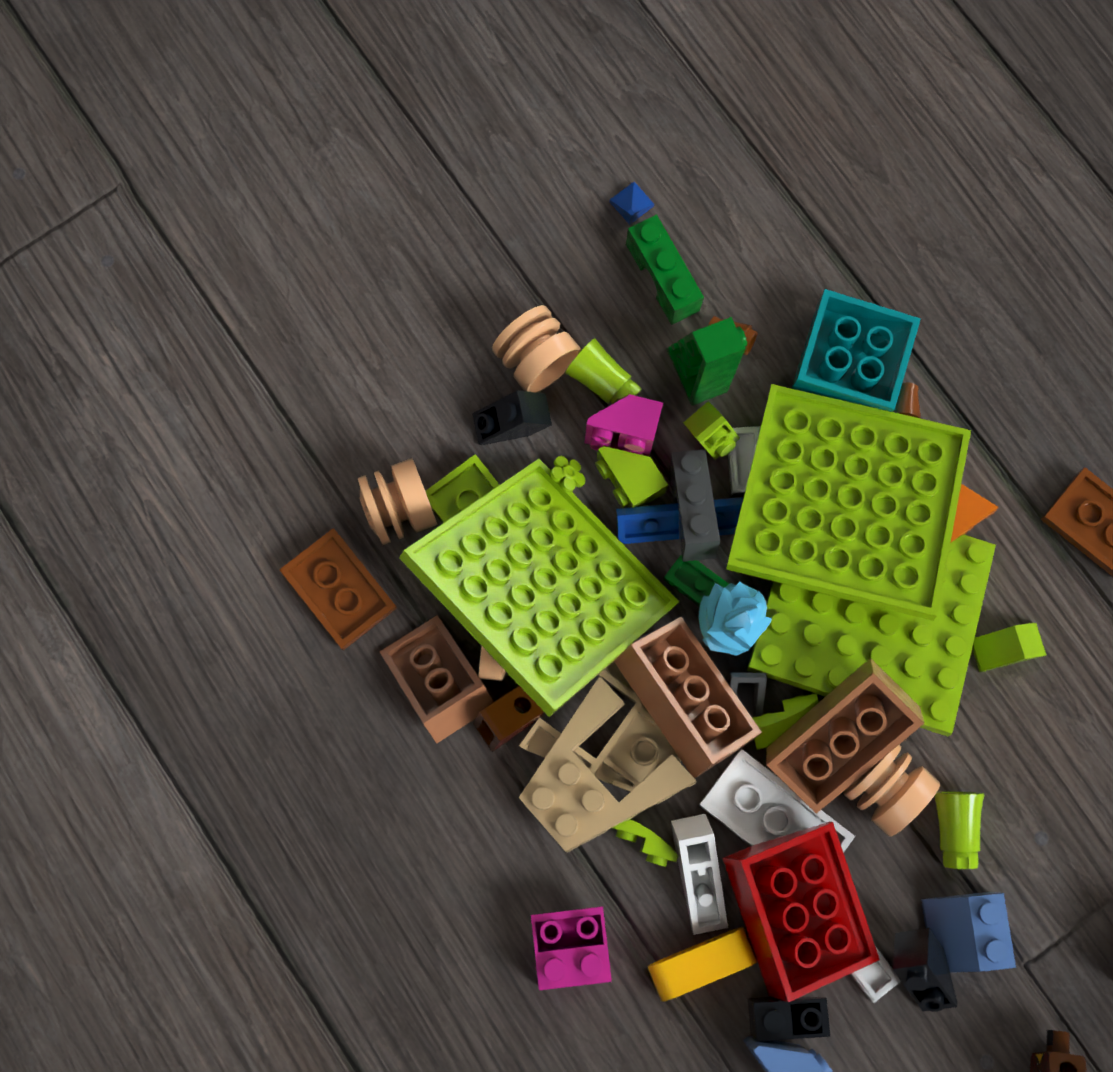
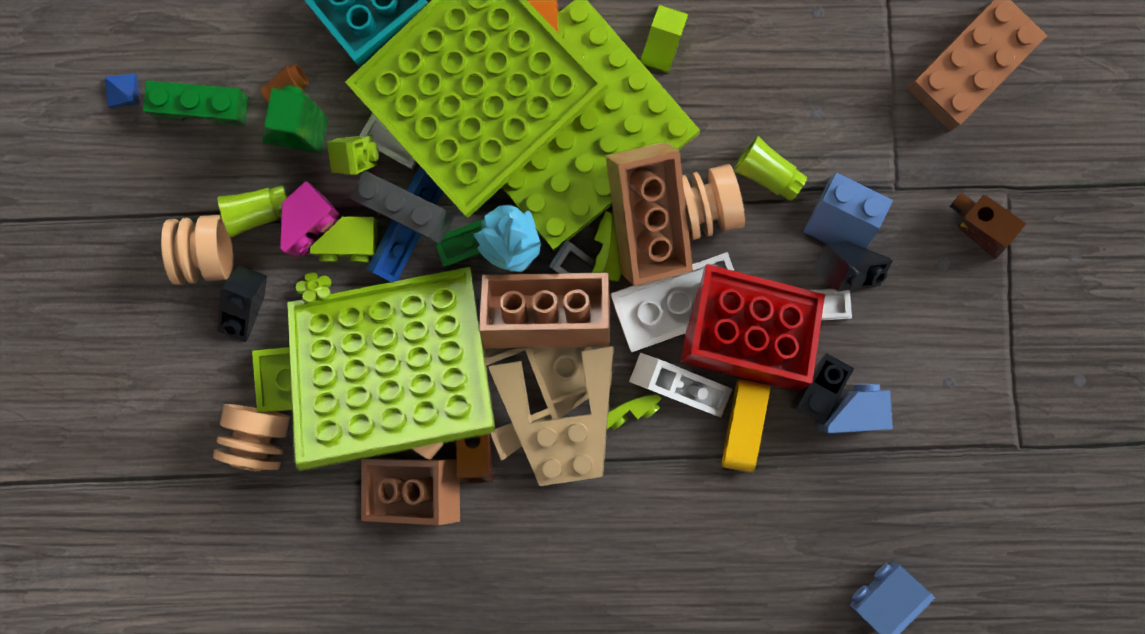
camera: 50 degrees left, 10 degrees up
(338, 589) = (291, 523): dark orange plate -> none
(571, 948) = (673, 516): dark pink slope -> none

